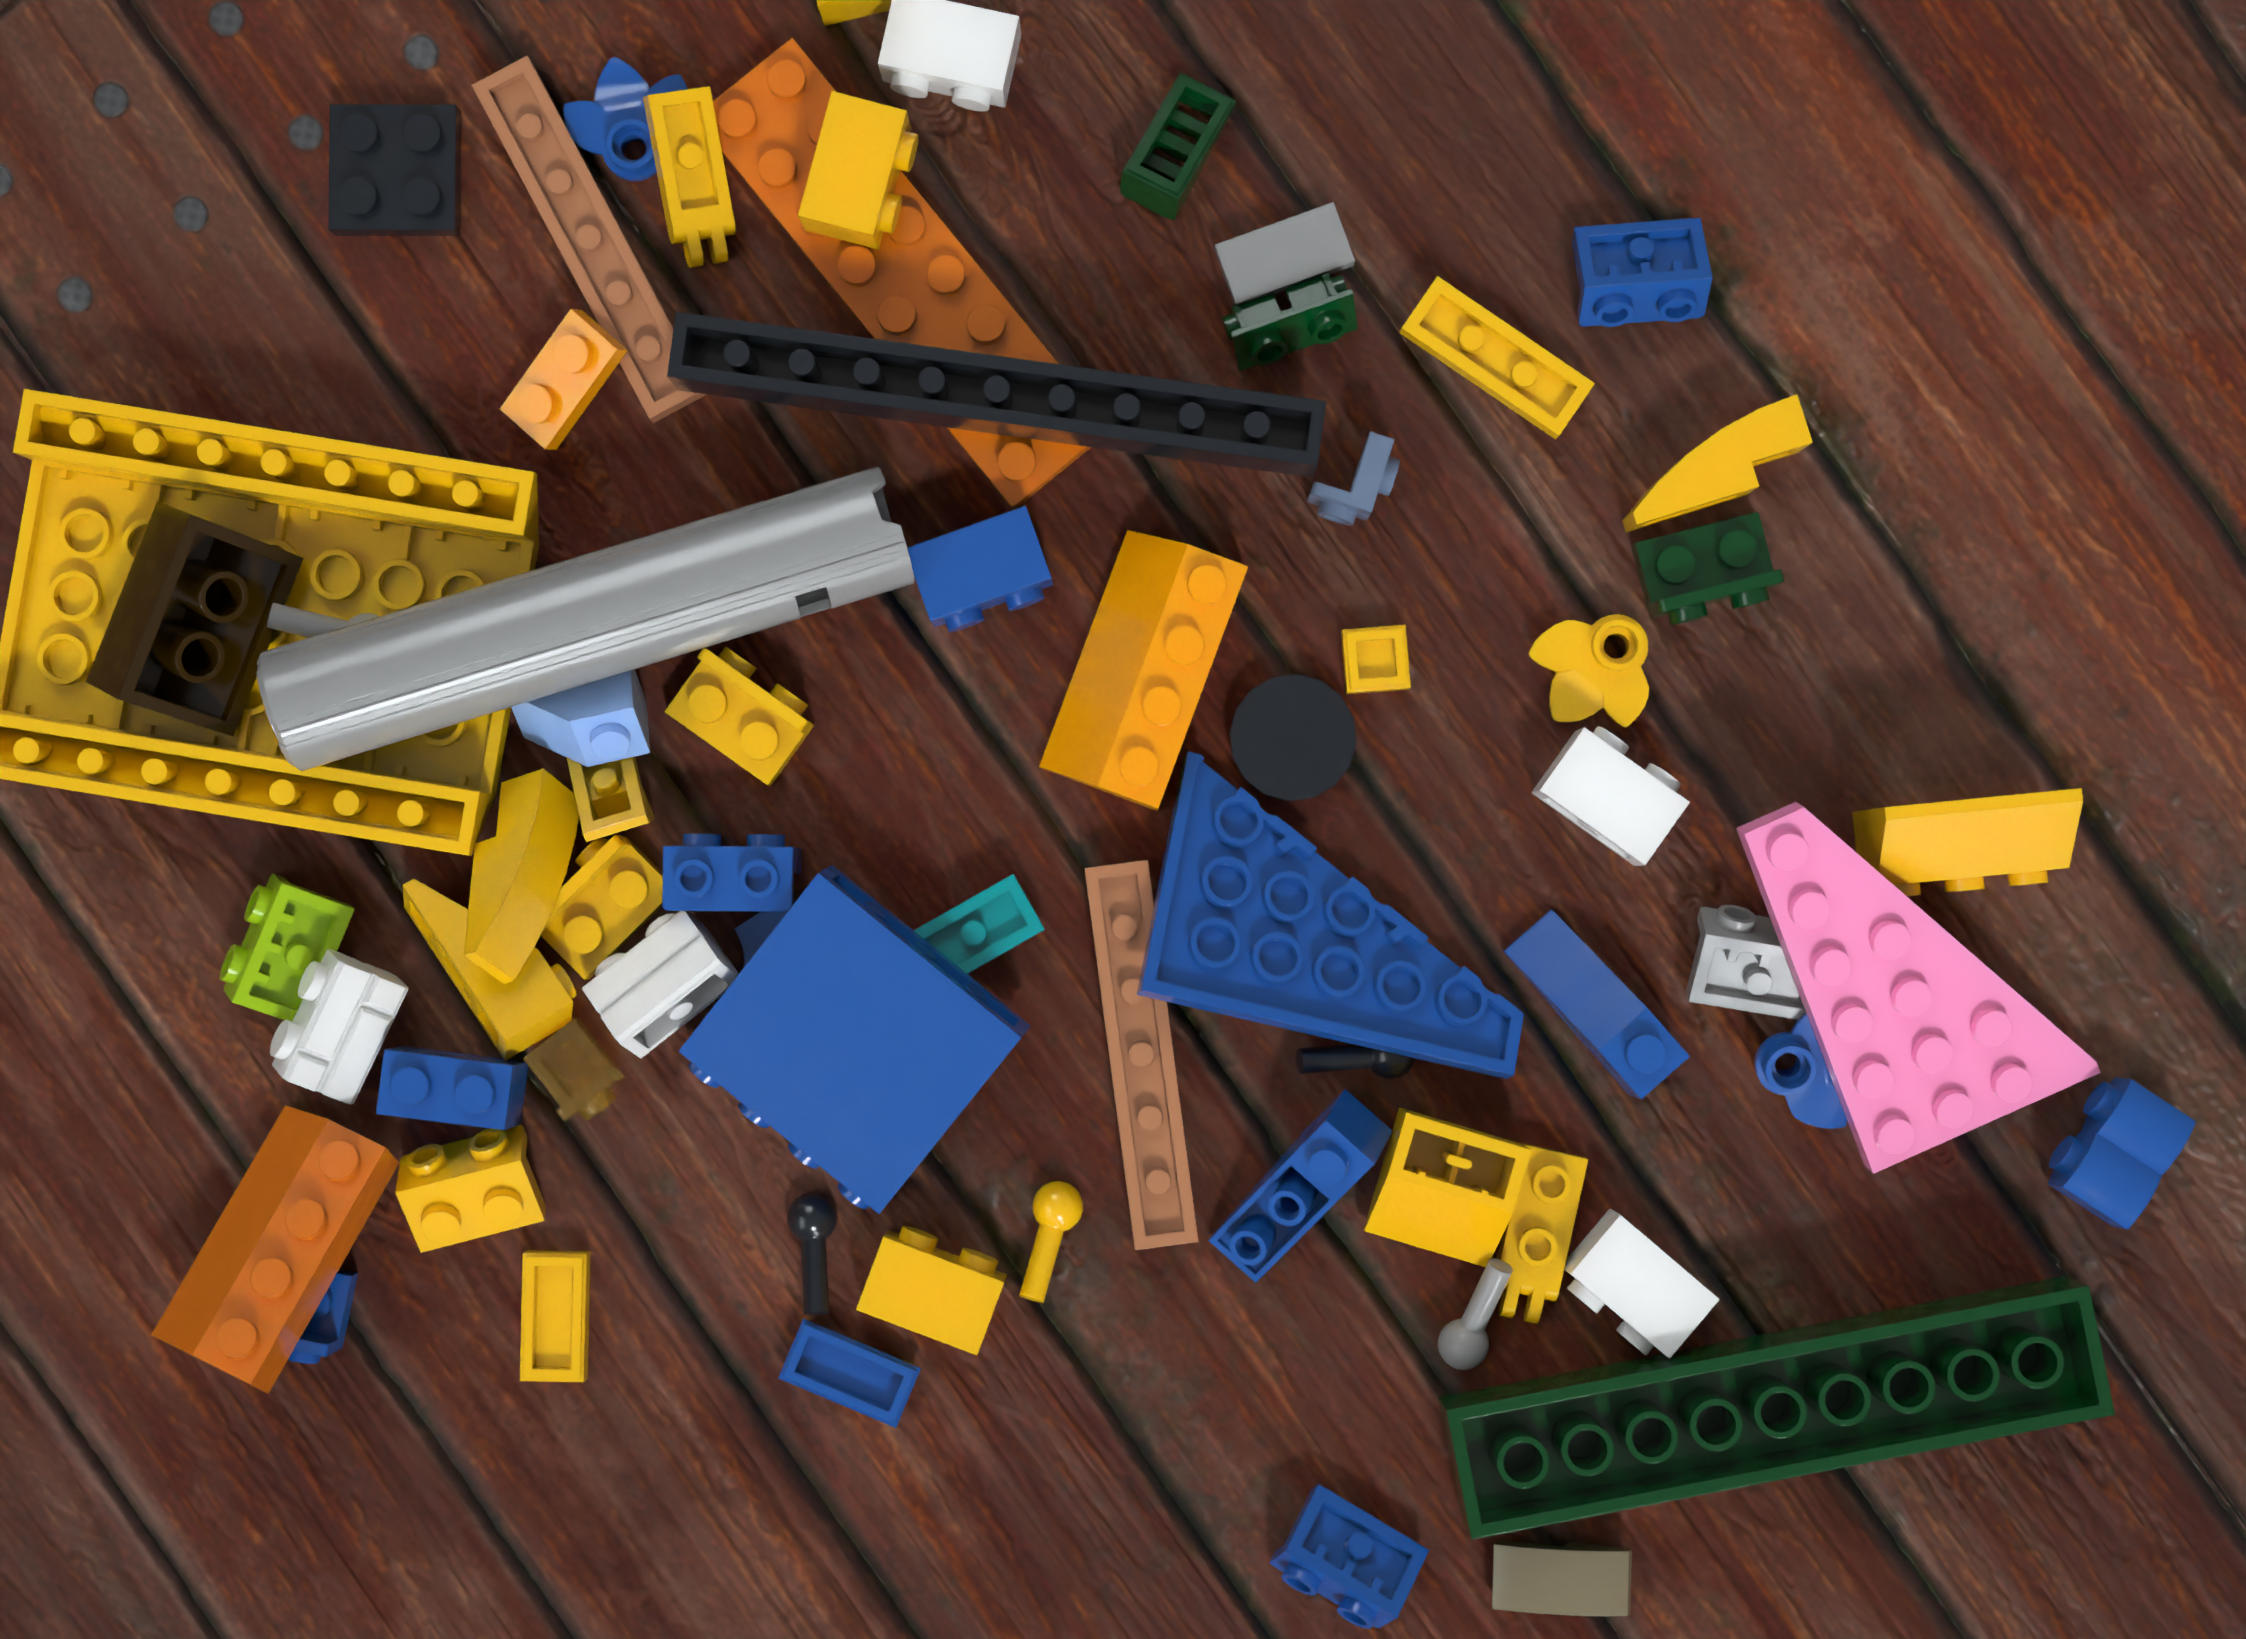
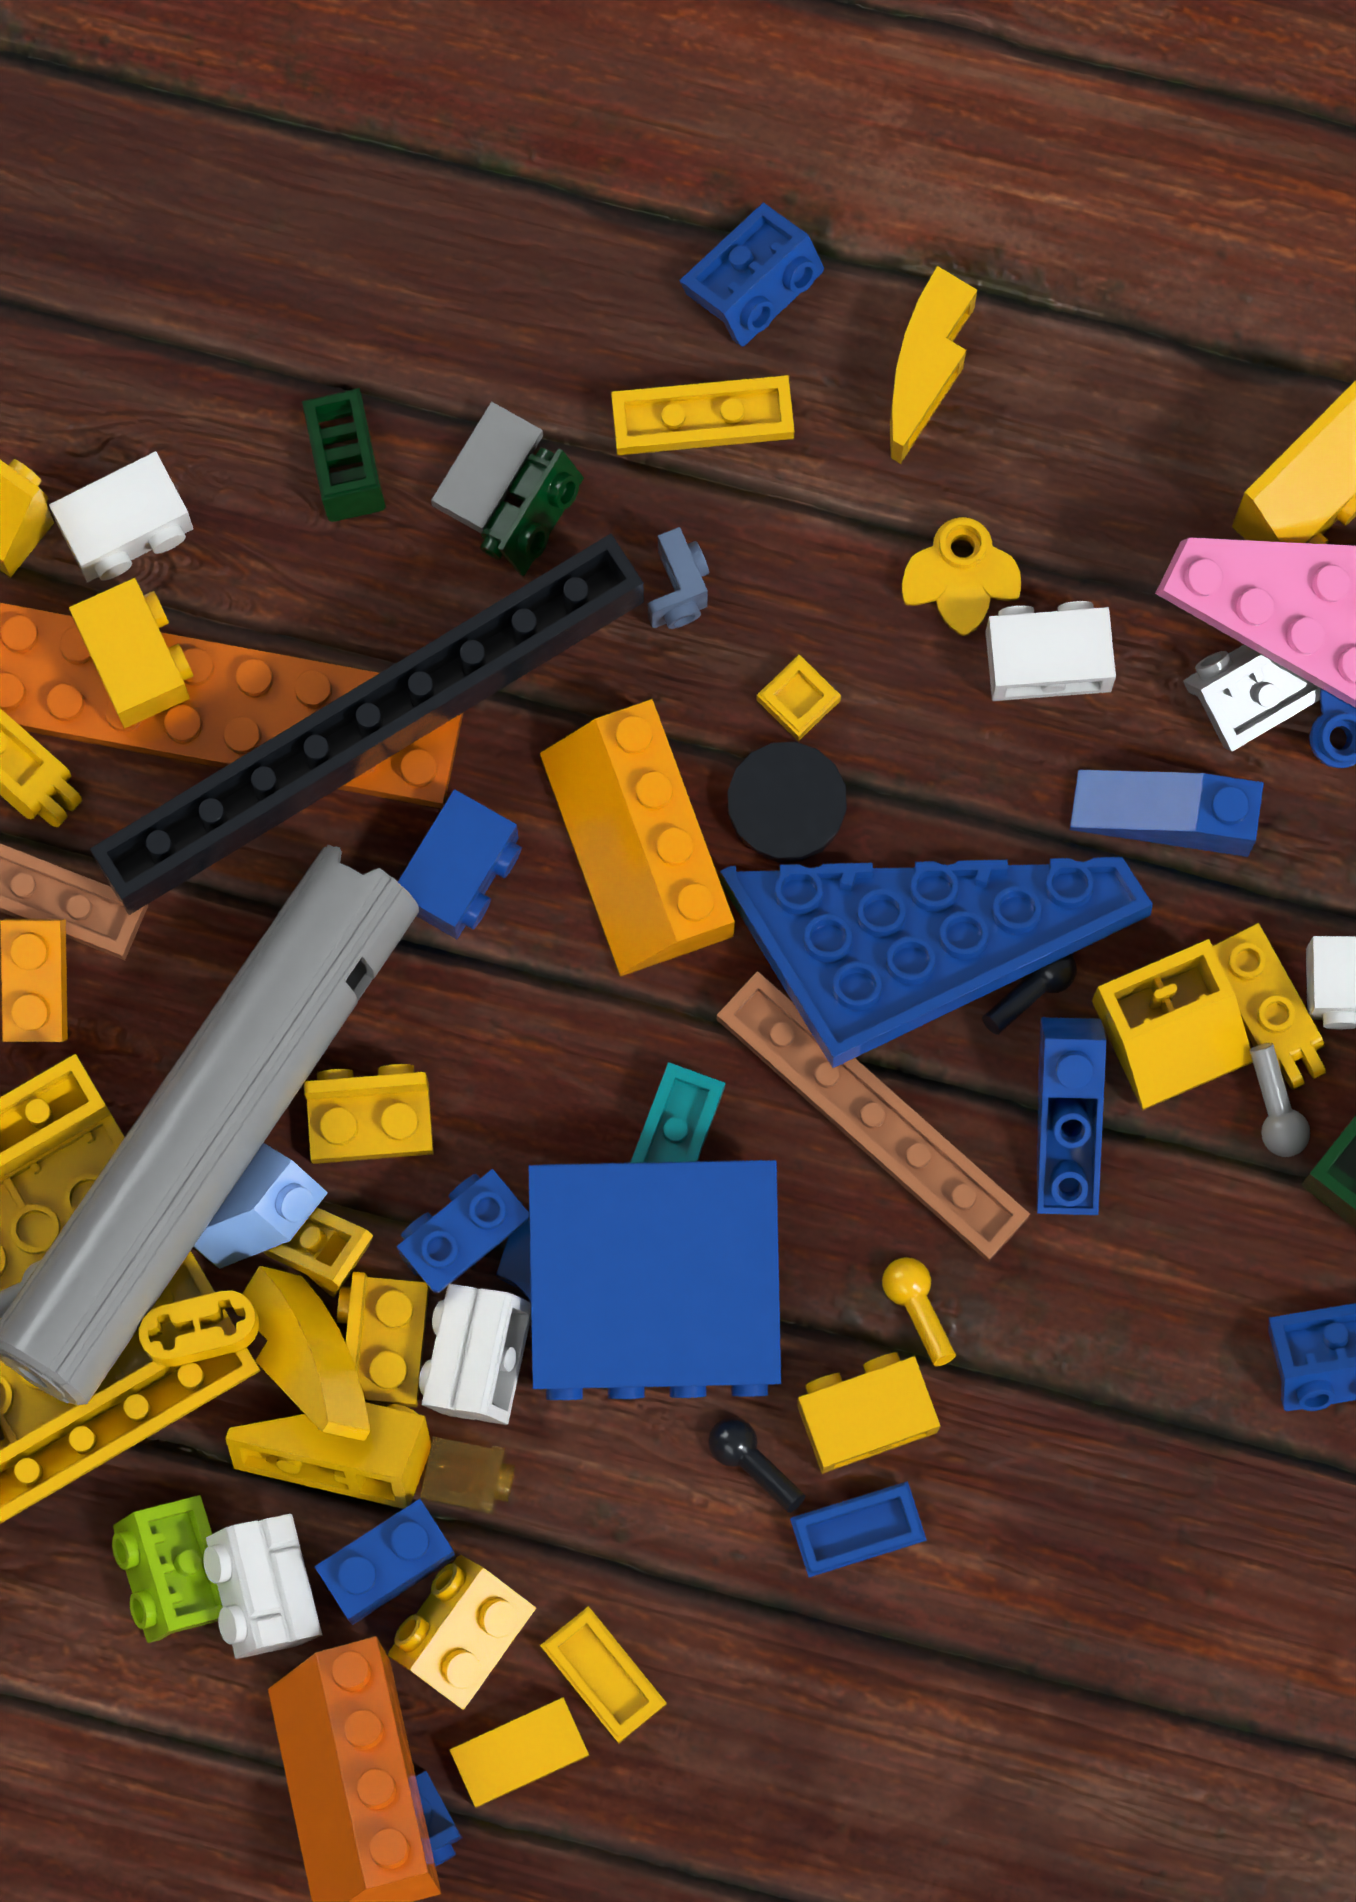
camera: 45 degrees left, 10 degrees down
(436, 797) = (195, 1314): none -> yellow beam
(438, 1321) = (519, 1752): none -> yellow tile
(1704, 567) = (977, 439): dark green bracket -> none

